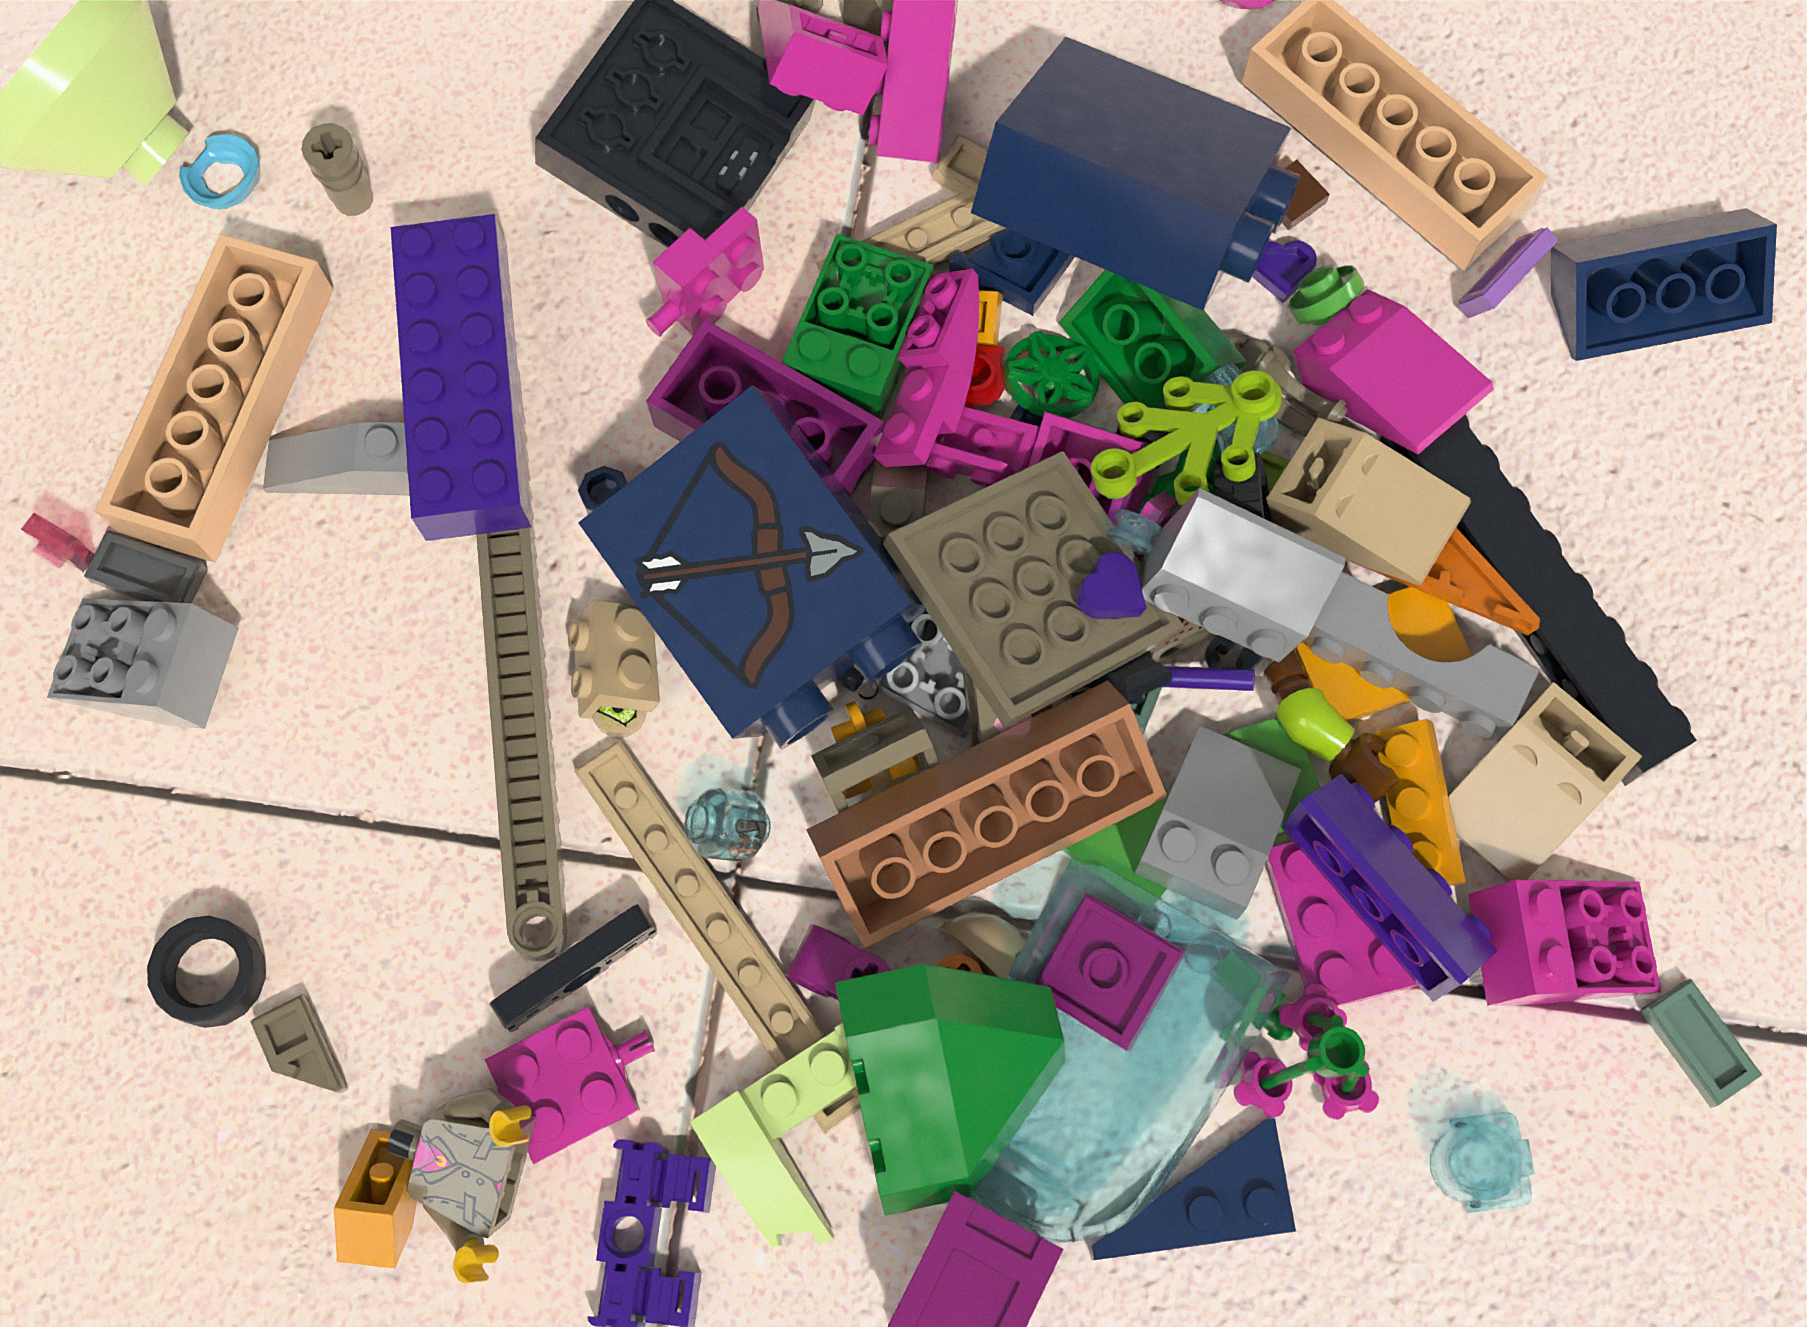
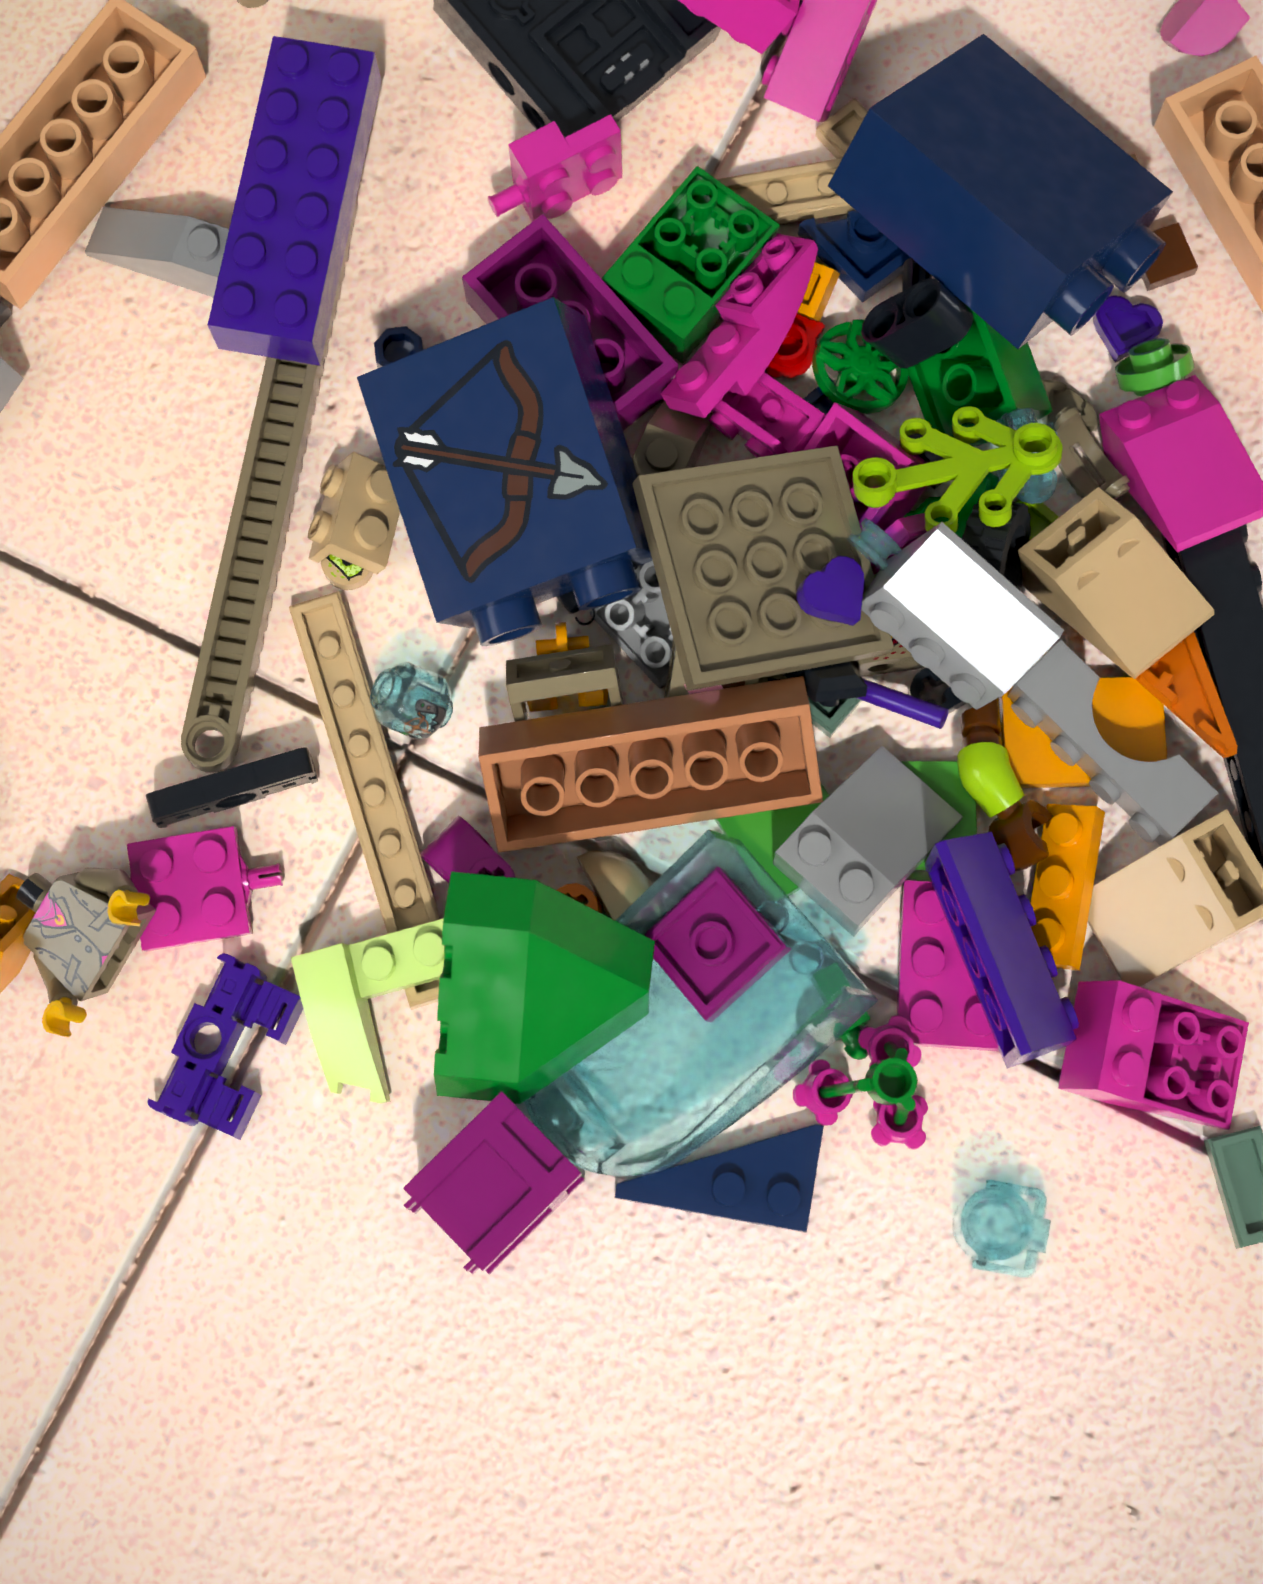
camera: 20 degrees right, 5 degrees up
(1096, 312) = (917, 320): none -> black beam

